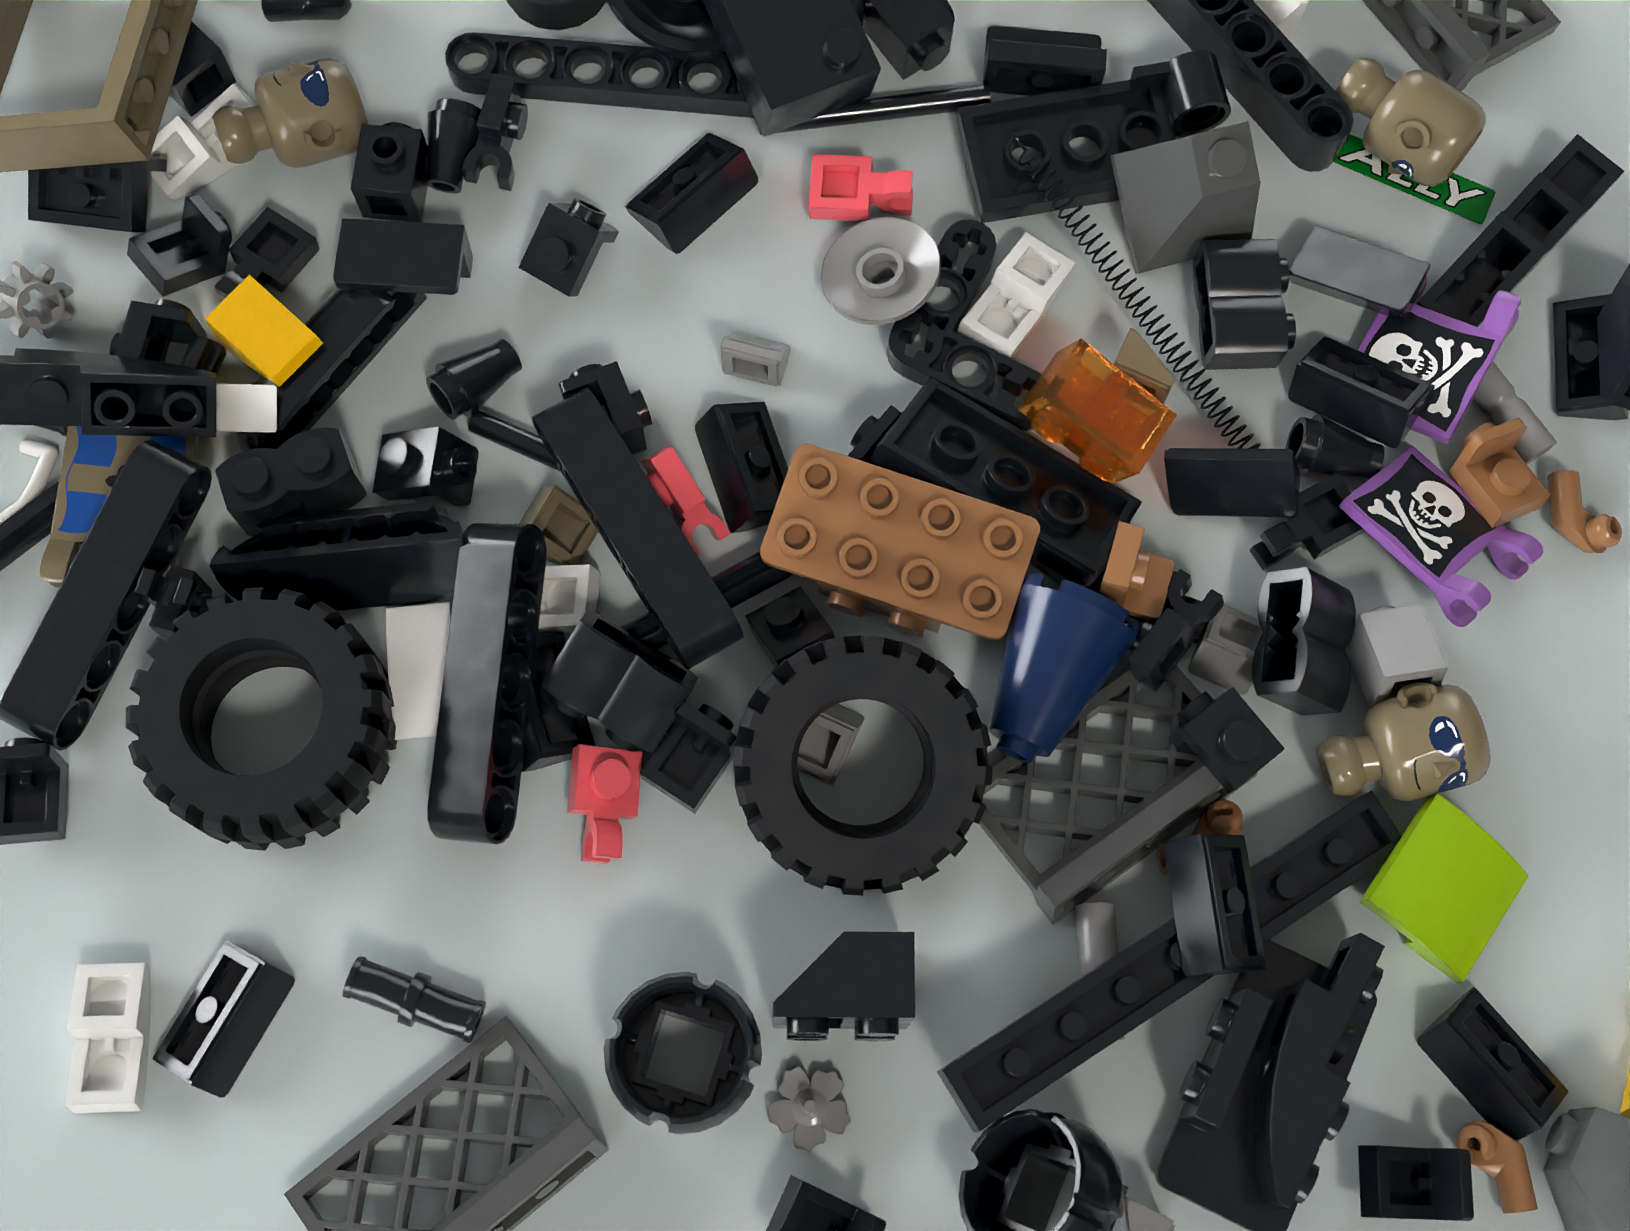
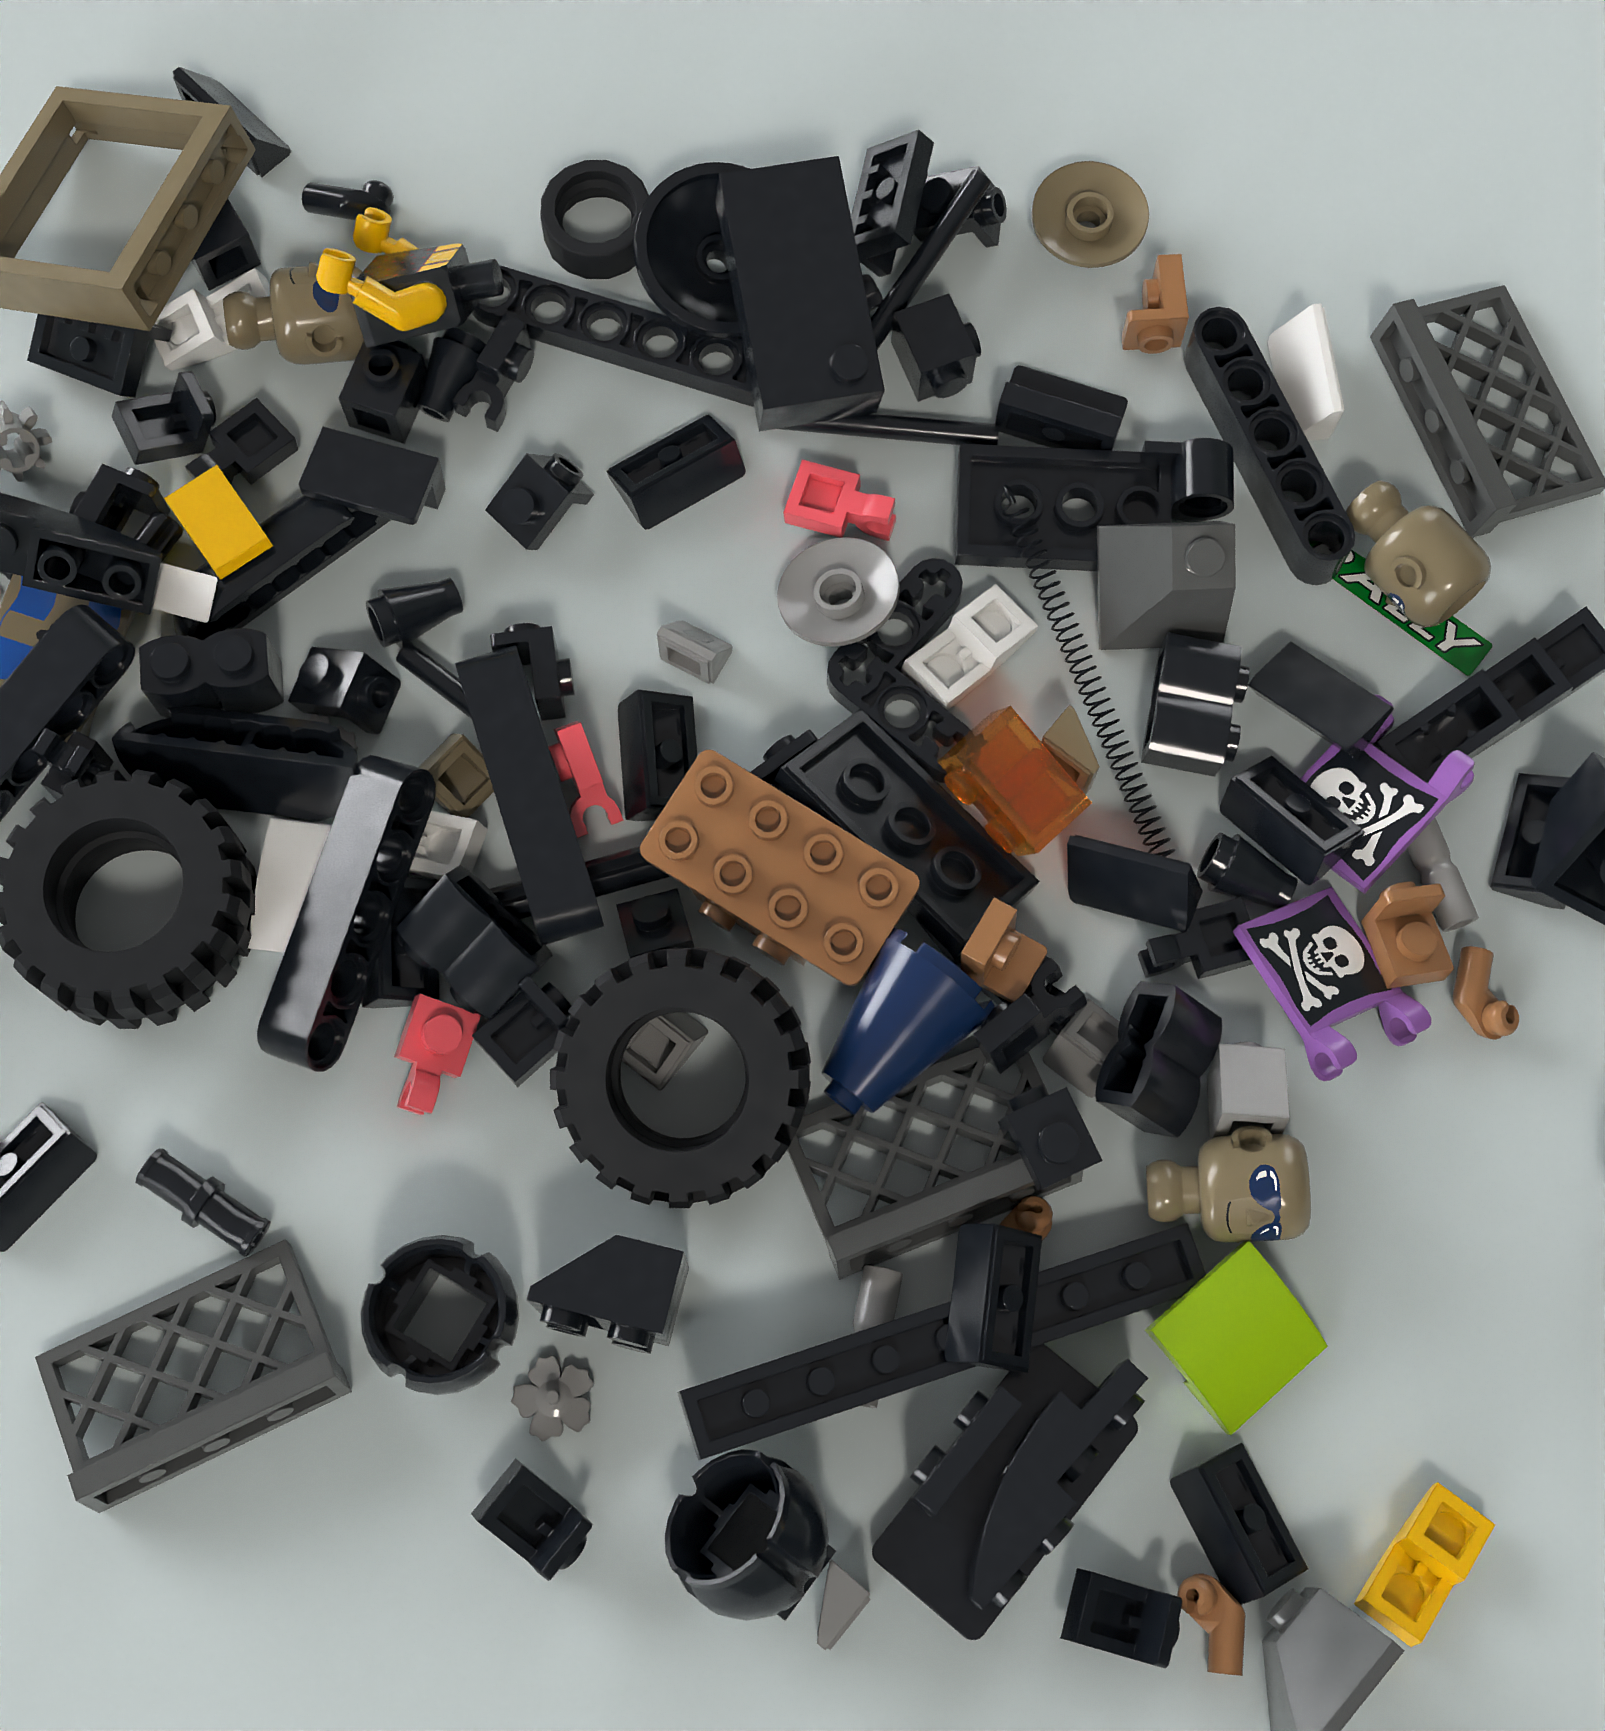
camera: 15 degrees right, 0 degrees up
(393, 69) = (407, 287): none -> torso

